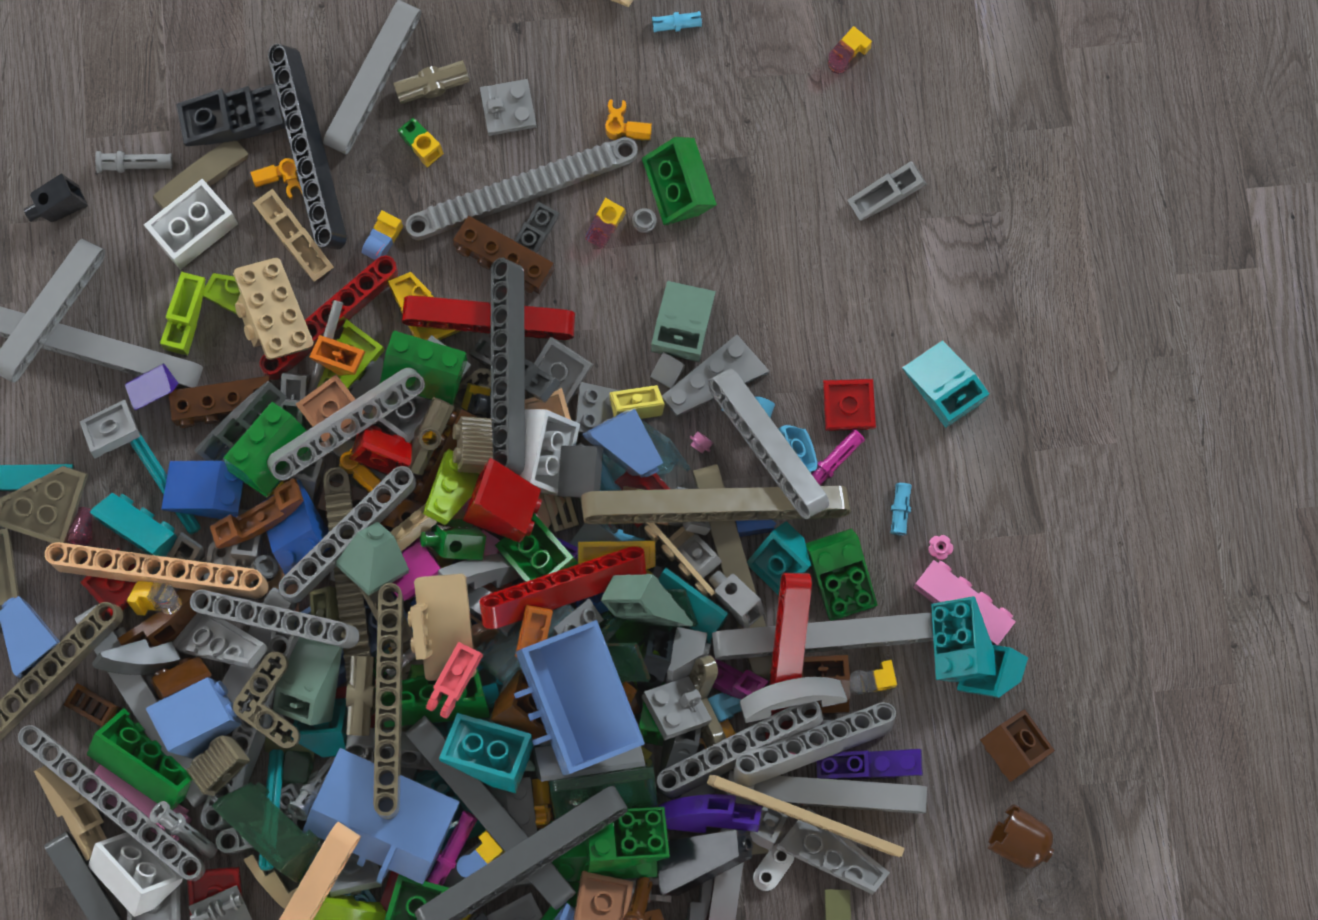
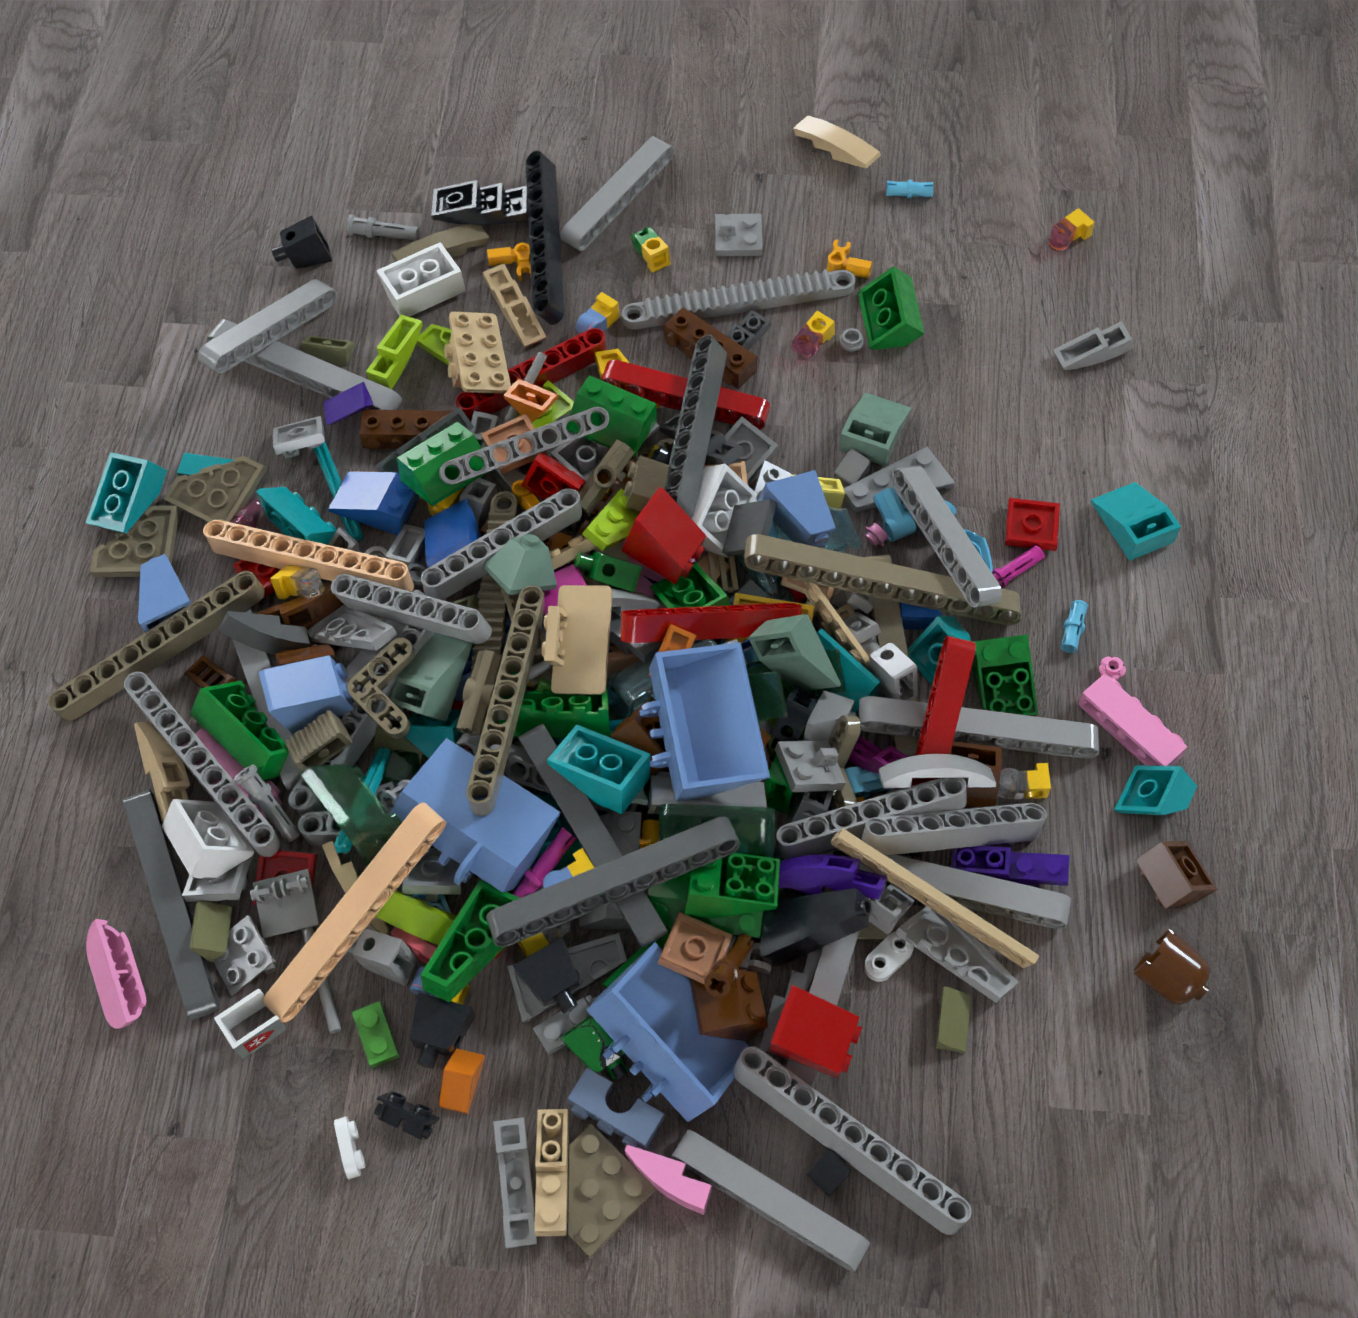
camera: 15 degrees right, 15 degrees down
(110, 318) = (328, 349): none -> olive slope
(259, 519) = (422, 529): dark orange slope -> none
(431, 82) = (671, 204): dark tan piece -> none
(454, 678) = (579, 687): coral hinge -> none
(718, 423) = (895, 520): none -> medium azure piece
(961, 641) = (1127, 755): teal slope -> none

